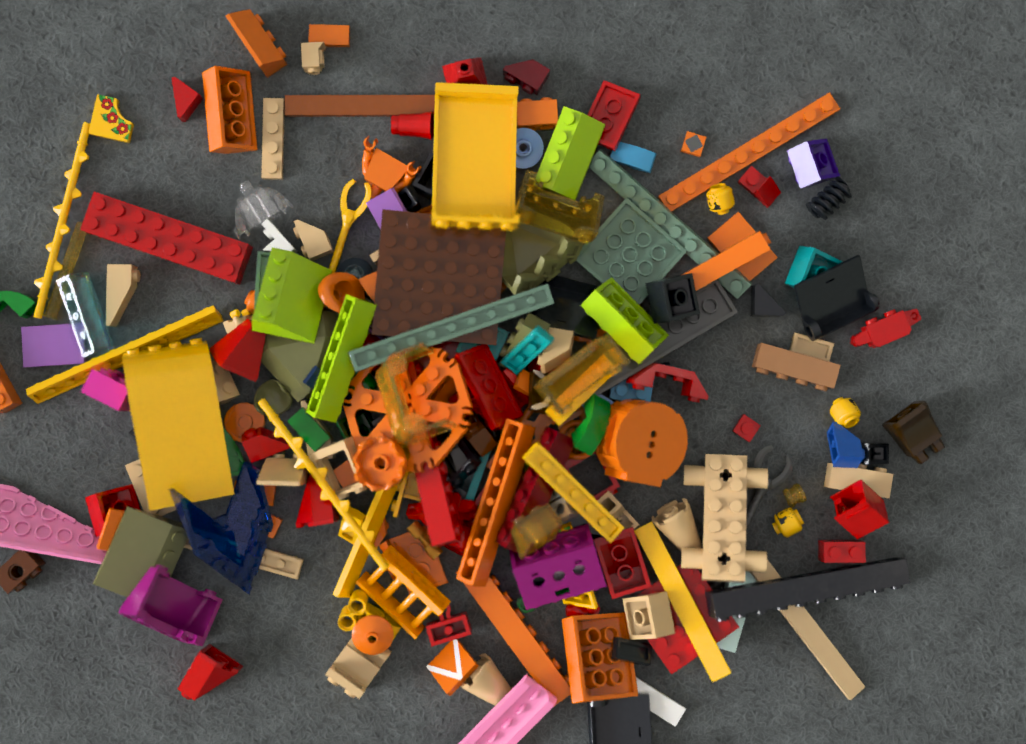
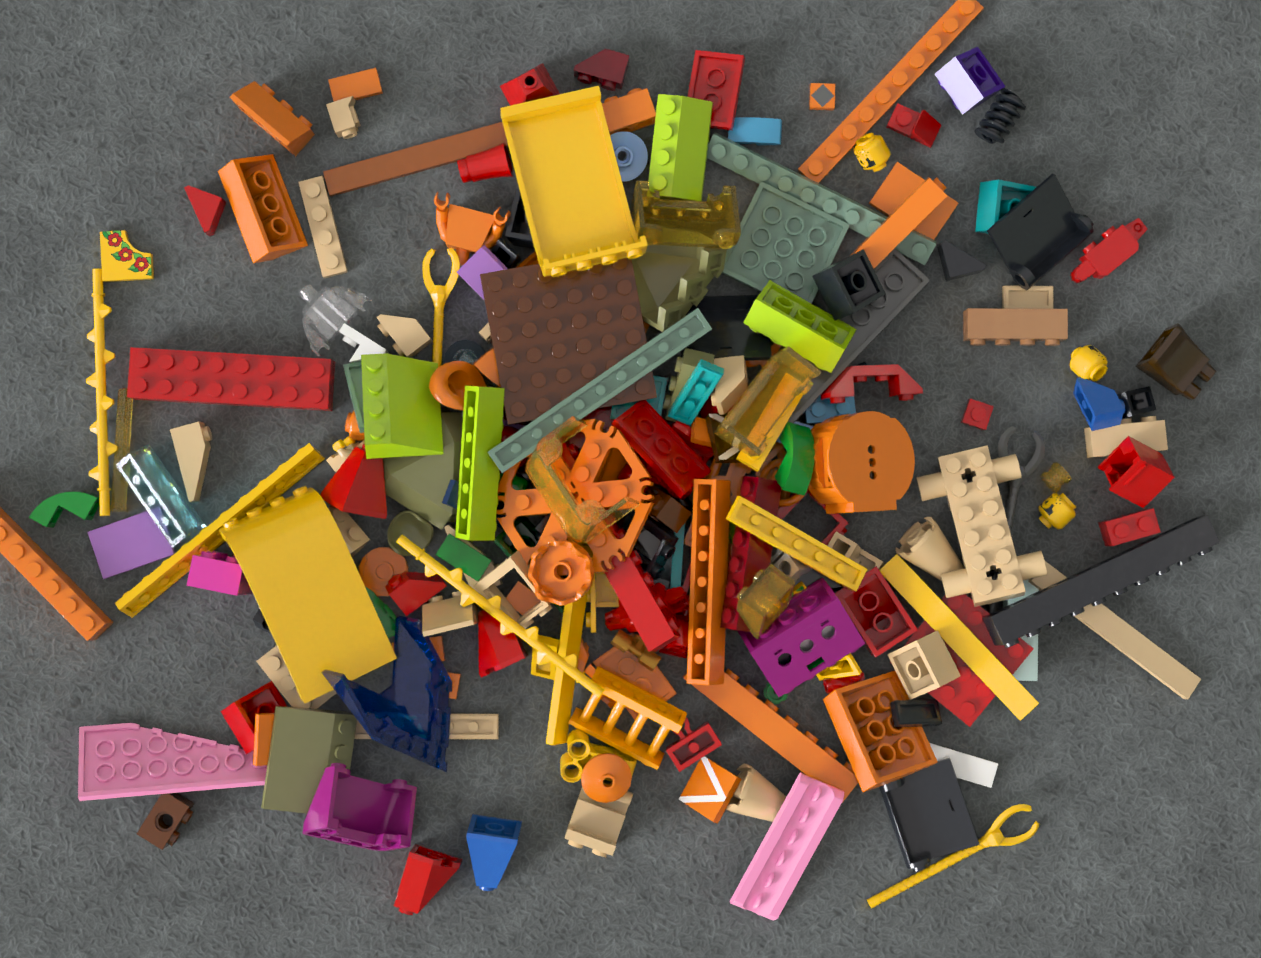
camera: 15 degrees left, 0 degrees up
(266, 663) = (491, 847): none -> blue slope

